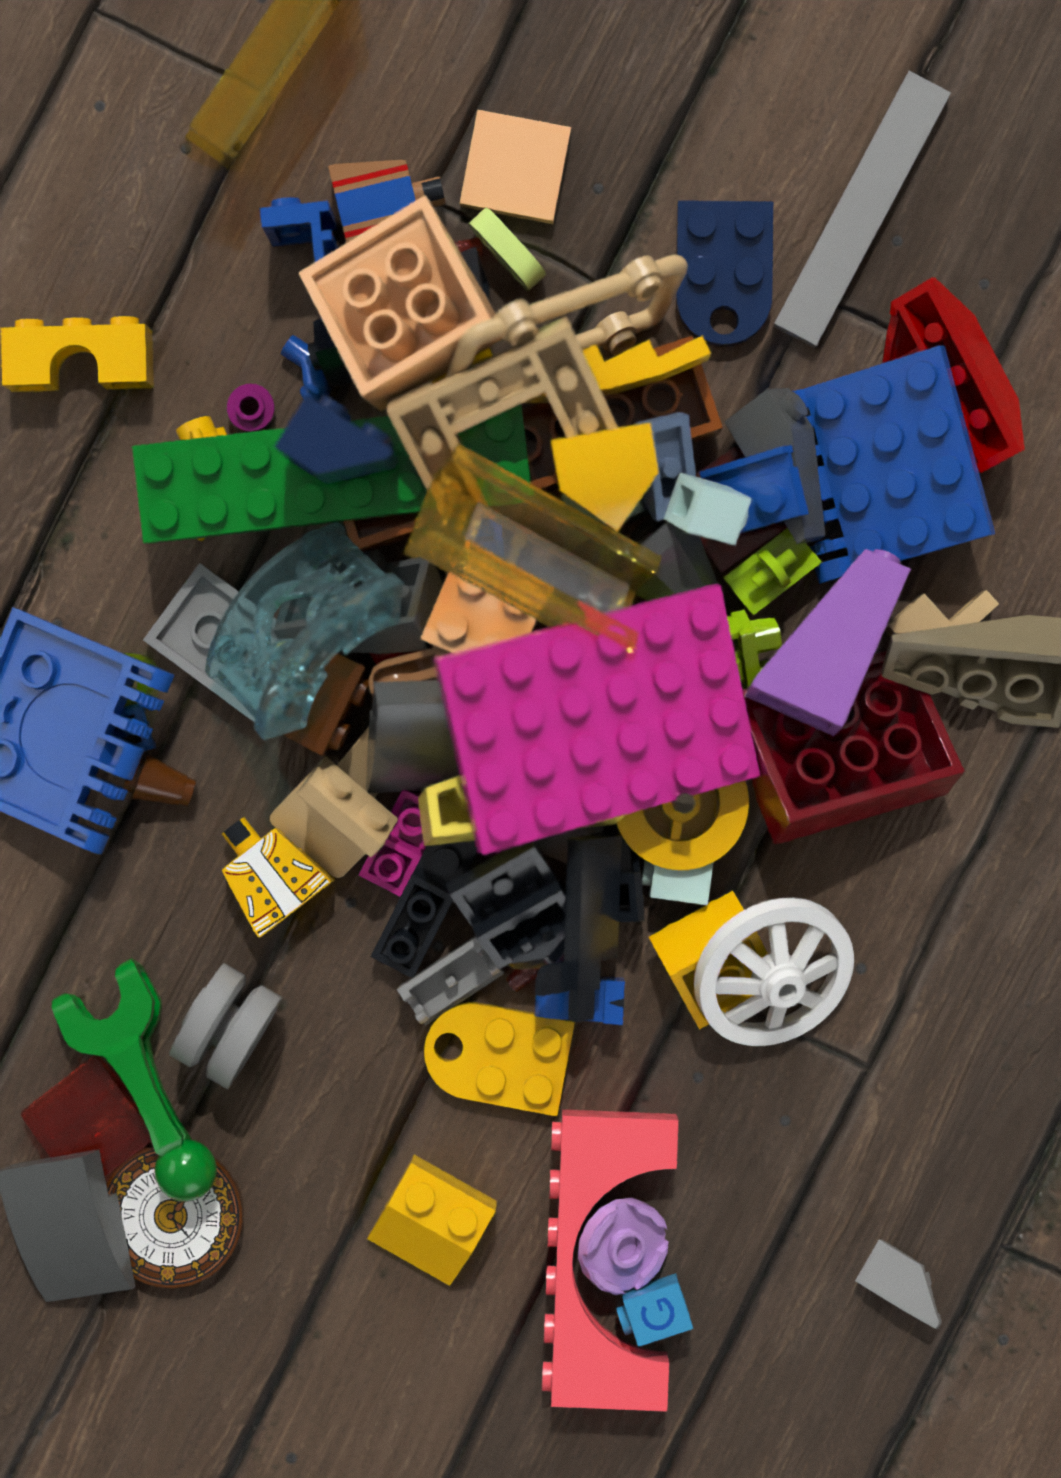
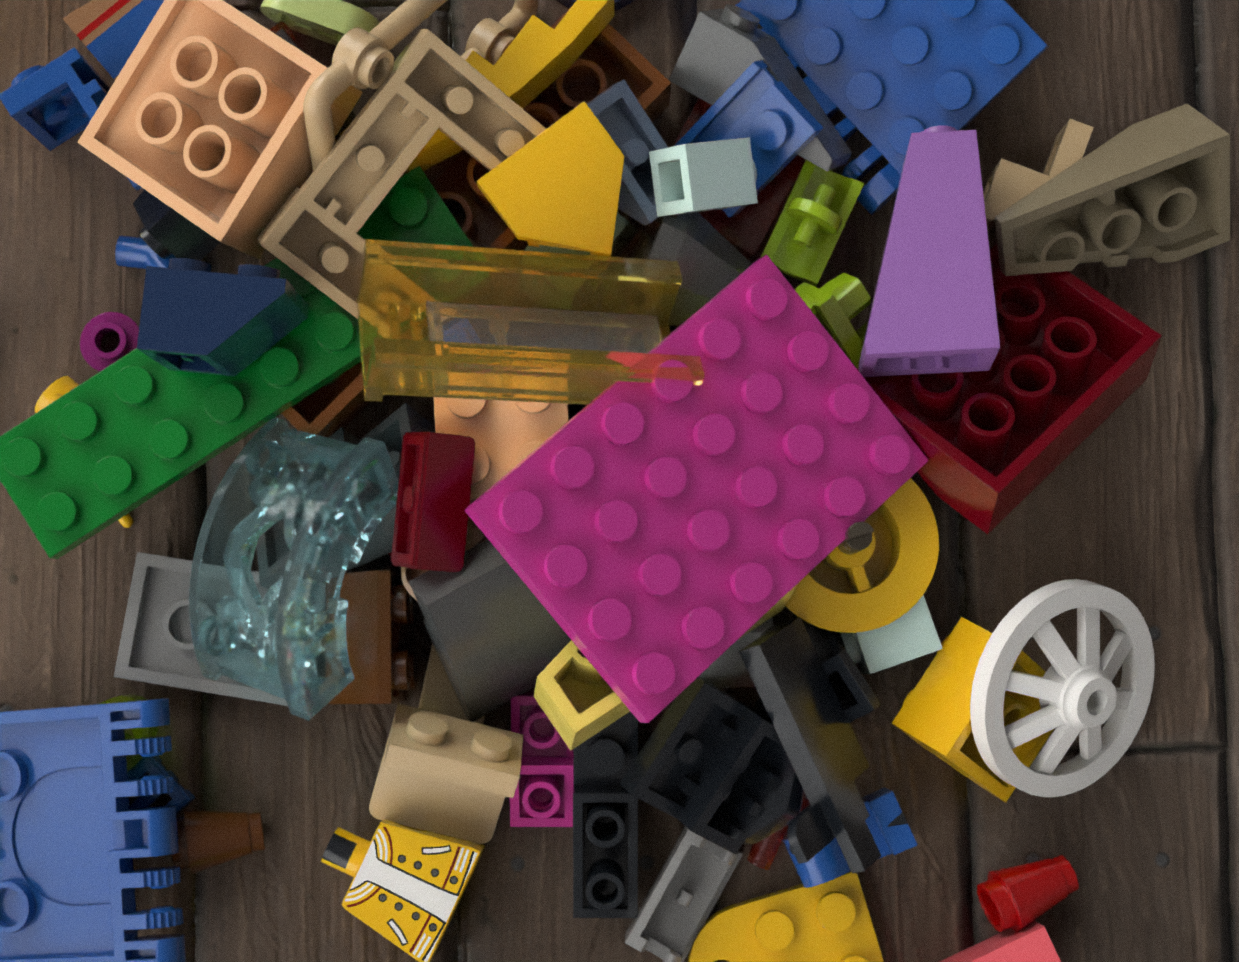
camera: 25 degrees left, 5 degrees down
(415, 638) = (432, 501): none -> dark red slope
(680, 1093) = (1025, 892): none -> red cone

